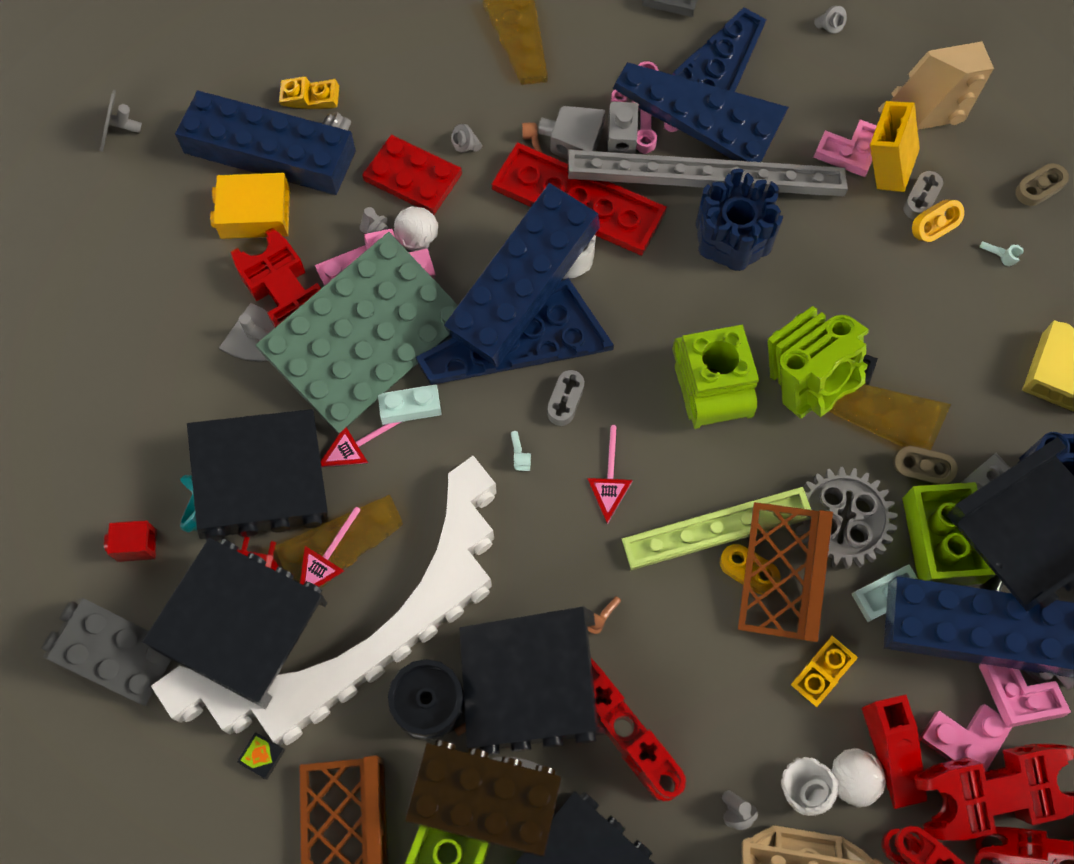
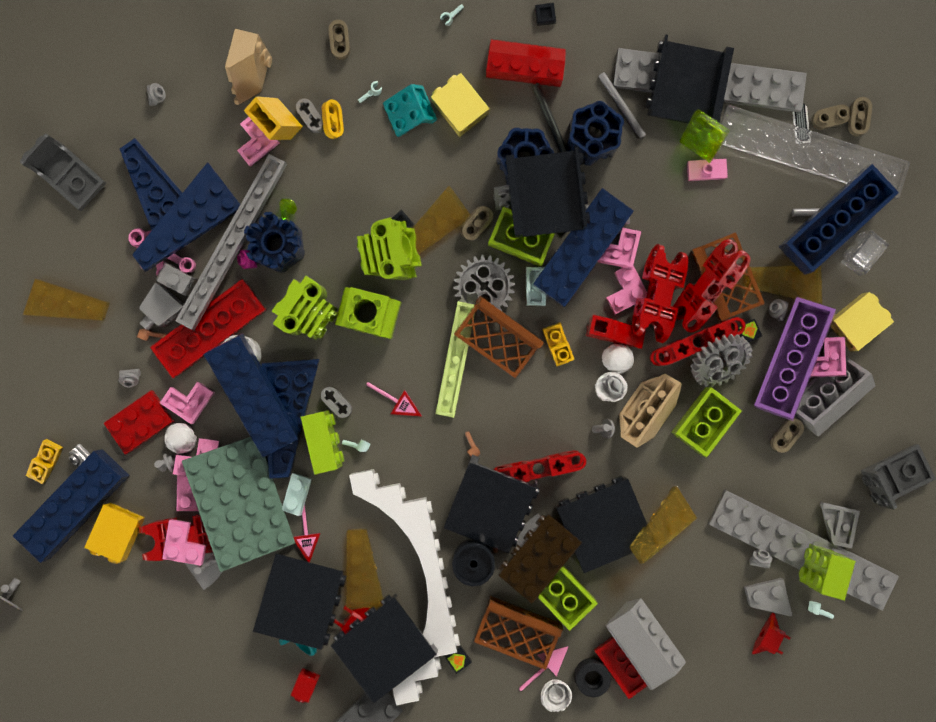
camera: 60 degrees left, 20 degrees up
(267, 281) = (178, 548): none -> bright pink plate
(318, 568) = (373, 588): piece -> none
(466, 222) = (188, 406): none -> bright pink plate
(503, 397) = (322, 441): none -> lime brick
(672, 292) = (308, 312): none -> lime piece
(691, 203) = (244, 261): none -> dark pink plate
(737, 571) = (484, 360): yellow plate -> none
(792, 219) = (286, 207): none -> clear neon green plate
(1018, 304) = (409, 109): none -> teal bracket

